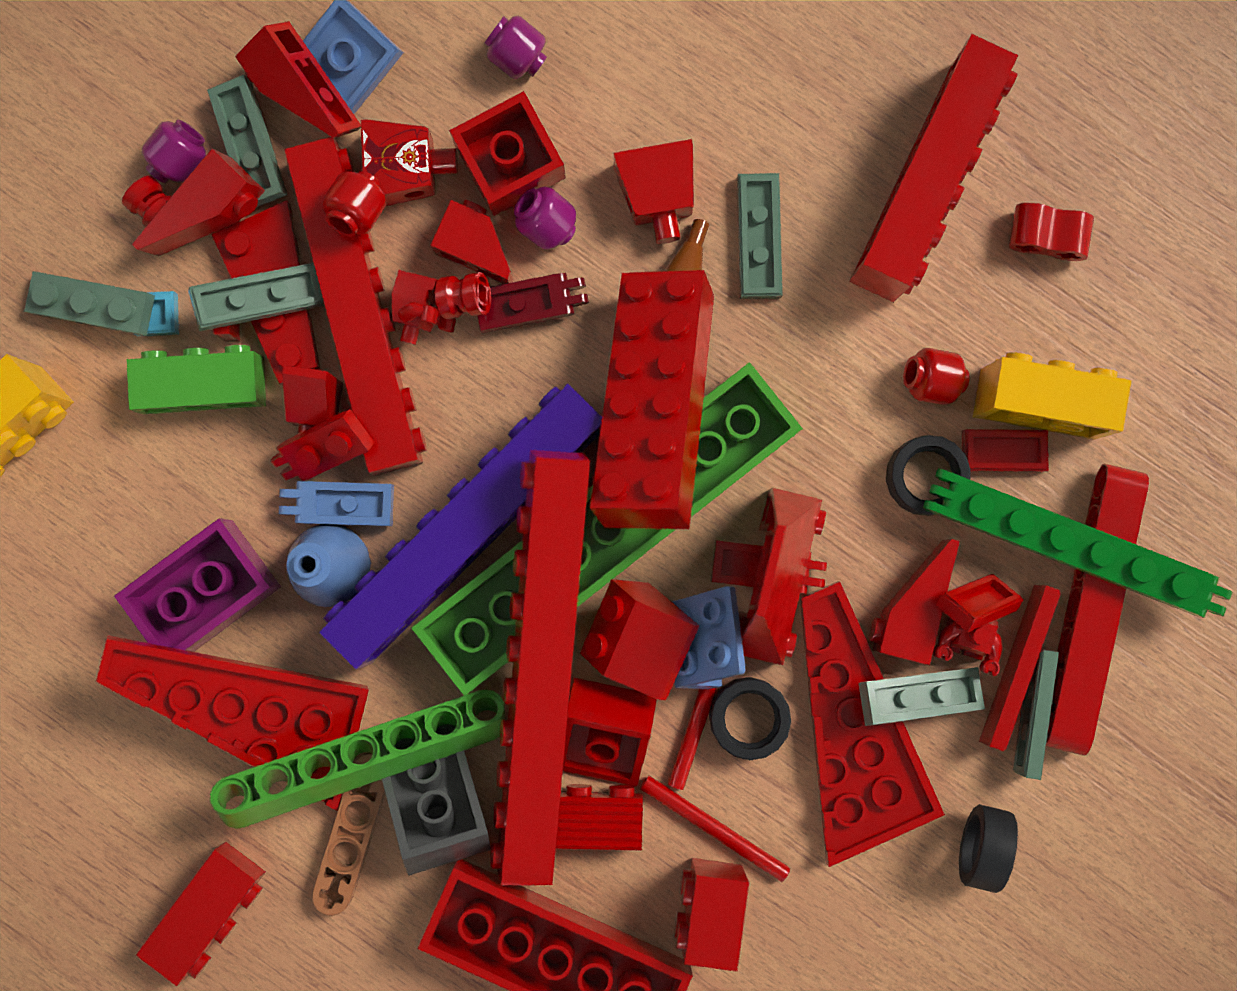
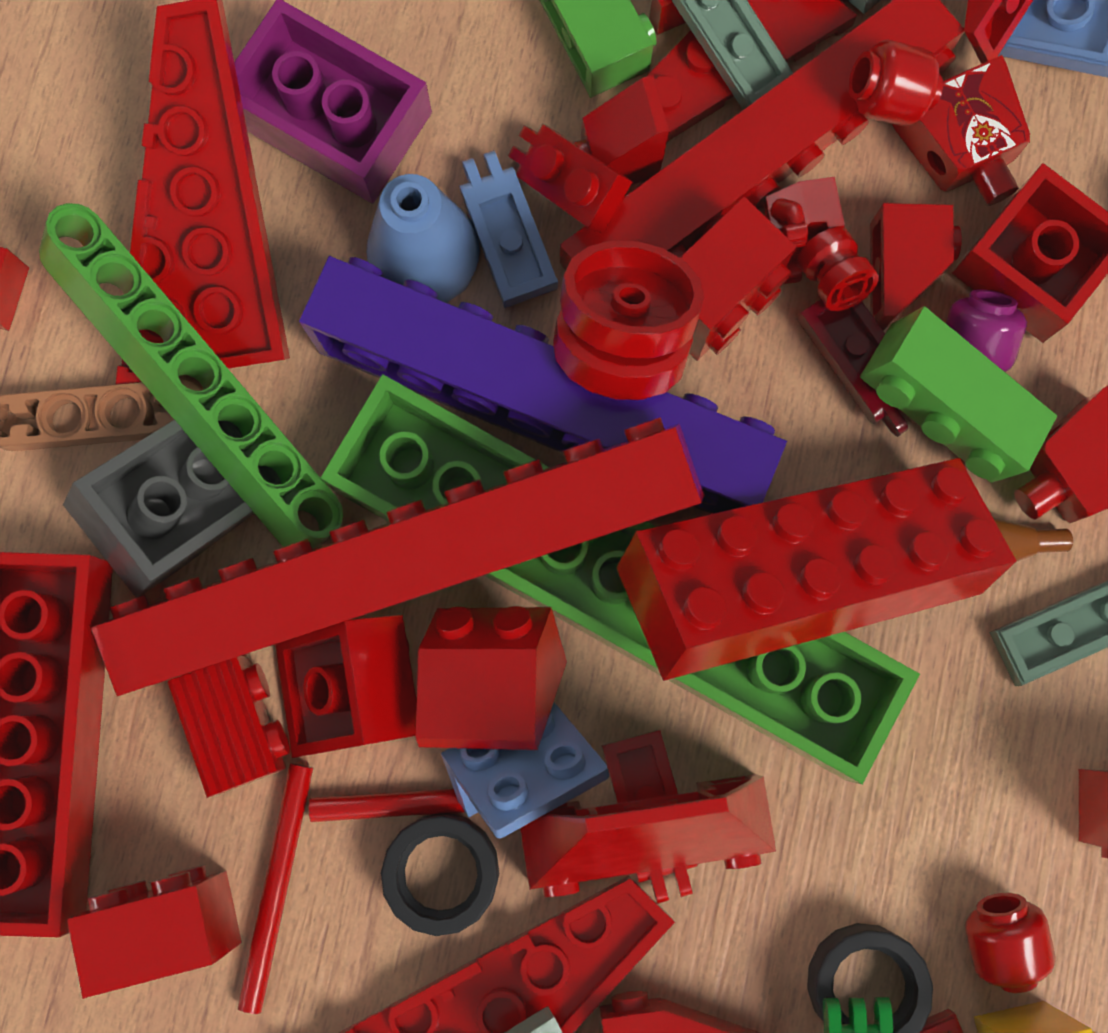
camera: 70 degrees right, 5 degrees down
(437, 375) = (739, 270): none -> red brick
(447, 454) = (627, 319): none -> red wheel
(581, 255) = (958, 396): none -> bright green brick

